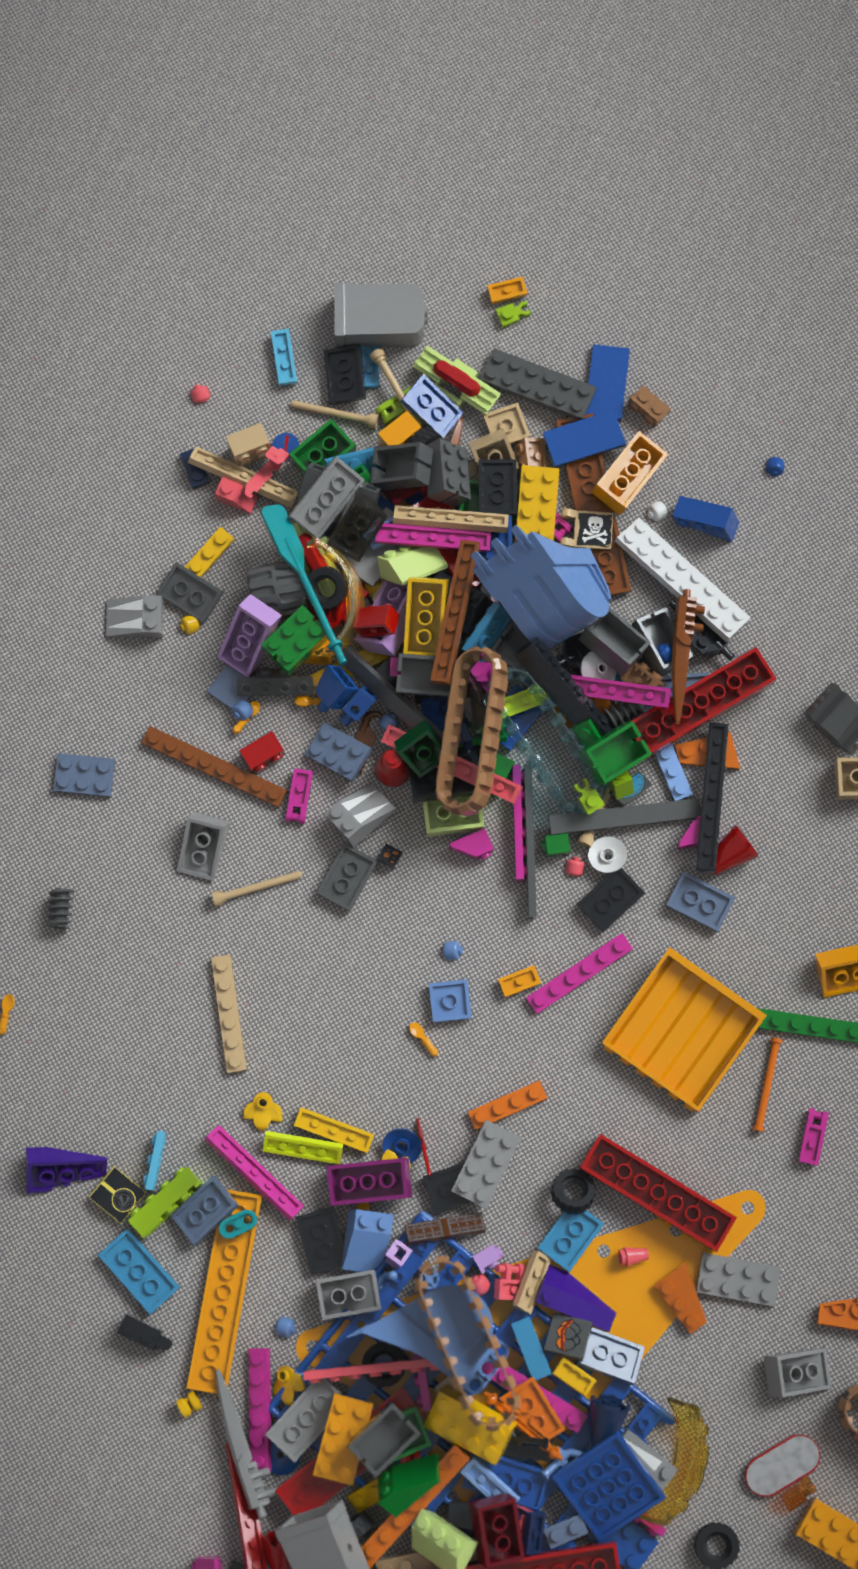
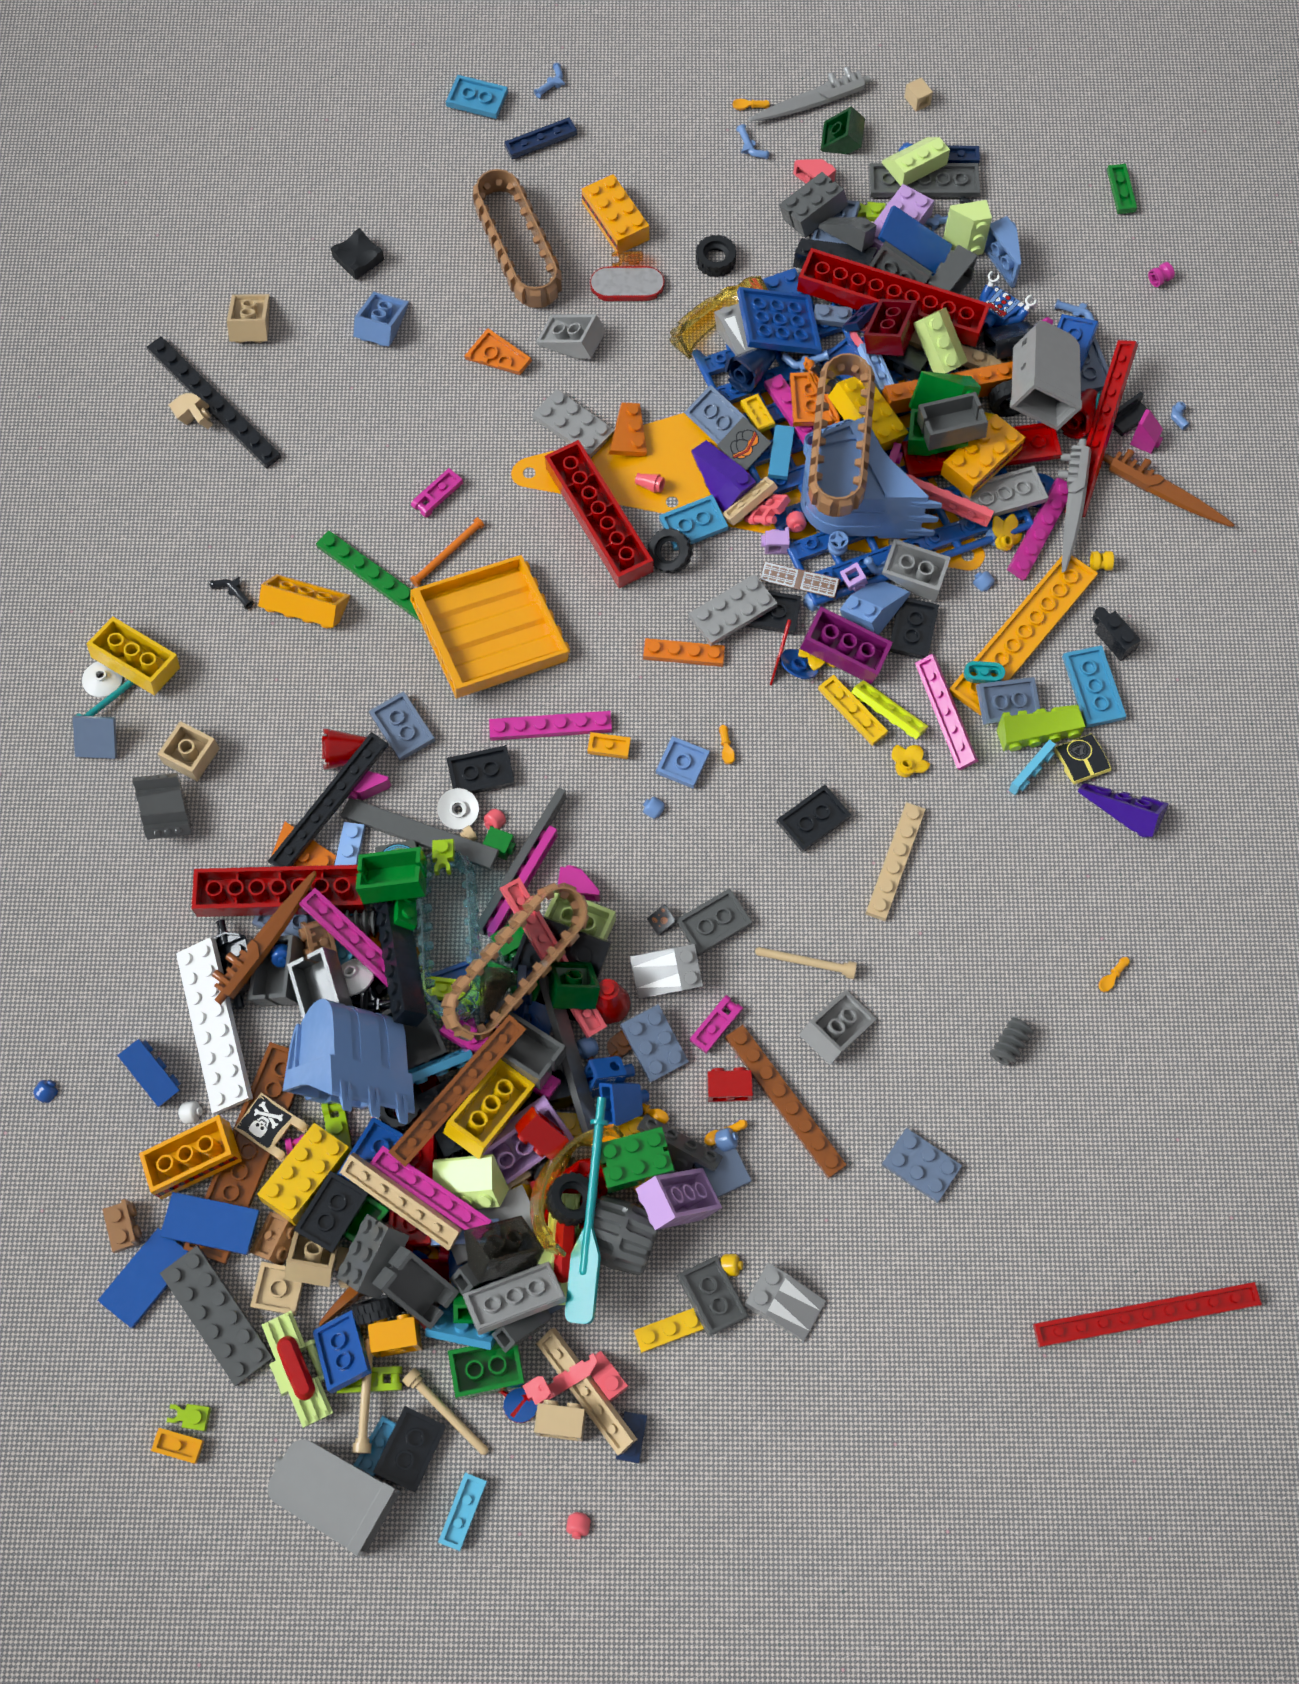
camera: 150 degrees left, 10 degrees down
(192, 1518) = (1159, 486): none -> dark orange piece
(314, 1012) = (813, 818): none -> black plate

